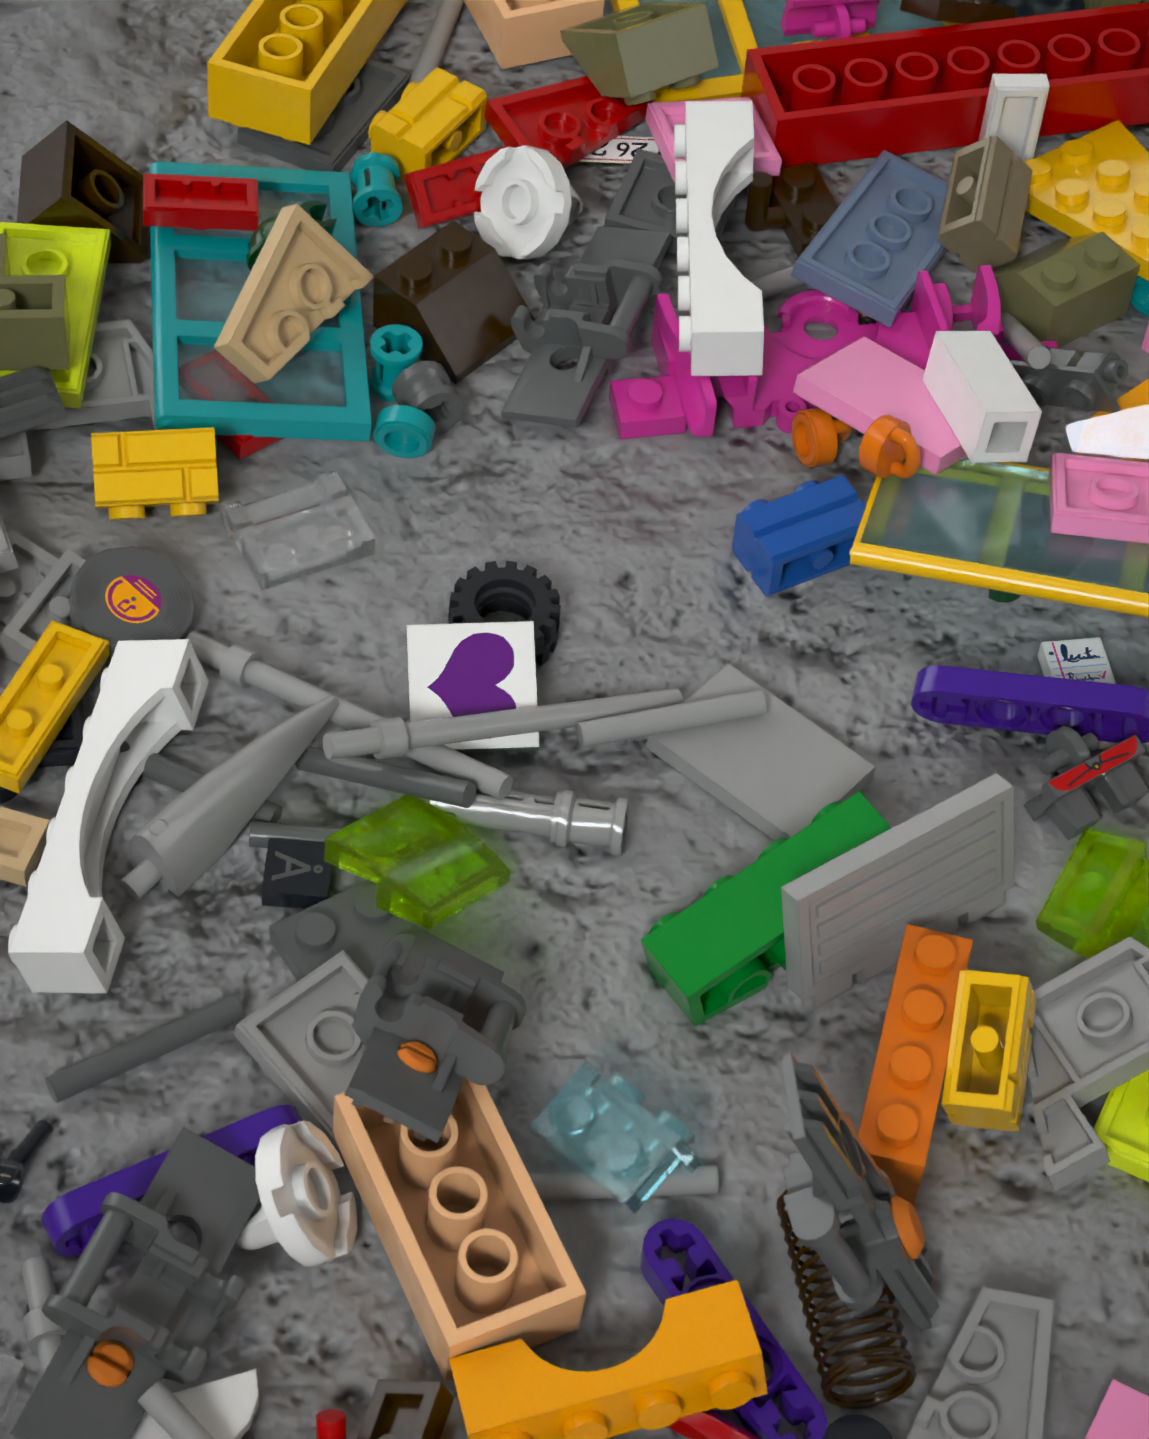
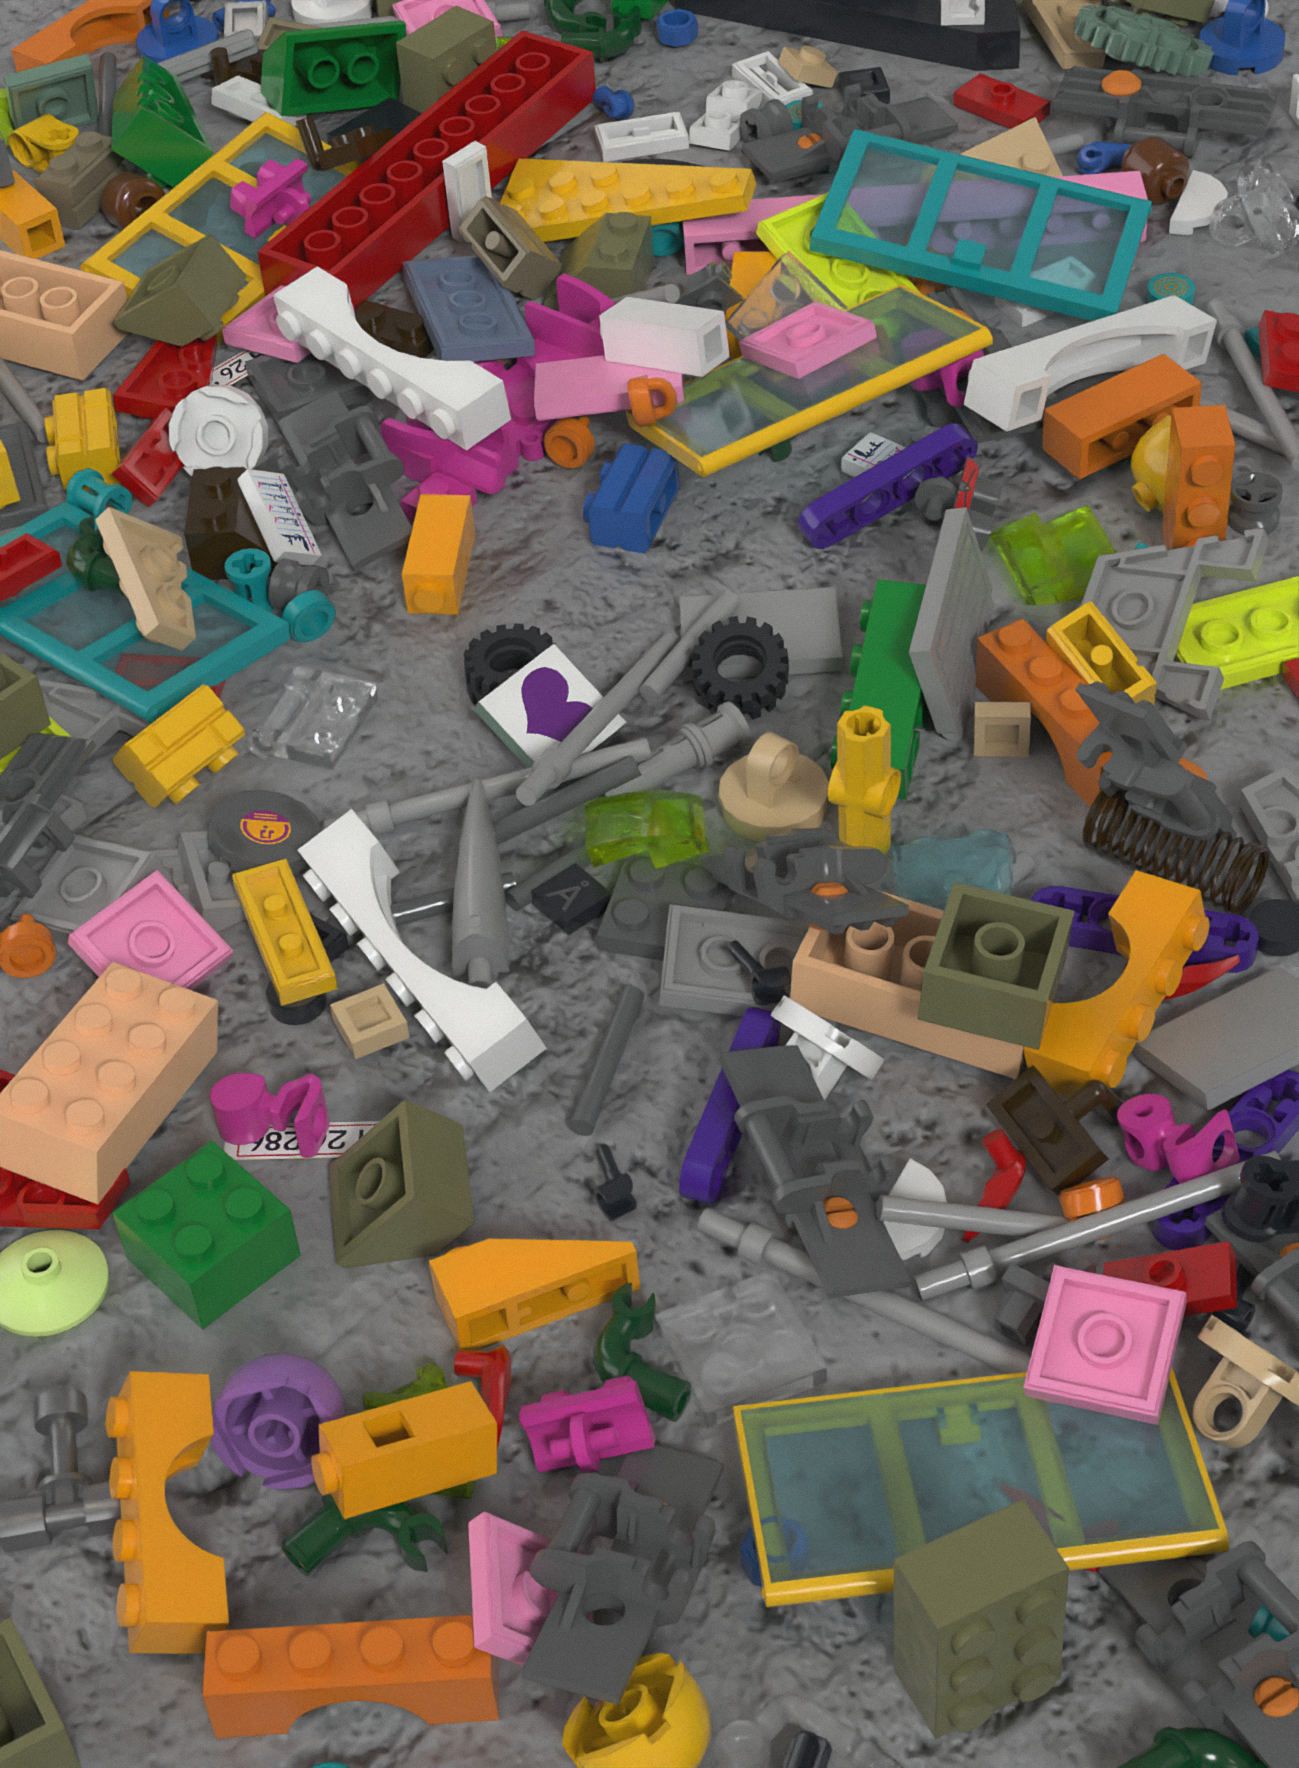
camera: 35 degrees left, 5 degrees down
(326, 1085) = (767, 983): none -> black hand
(467, 1259) = (995, 965): none -> olive brick
(480, 319) = (278, 516): none -> white tile
(575, 458) = (438, 554): none -> light orange brick
(579, 922) = (773, 790): none -> tan tile
(611, 981) = (863, 779): none -> yellow piece
(674, 742) = (738, 640): none -> black tyre
(844, 1032) = (1002, 729): none -> tan plate

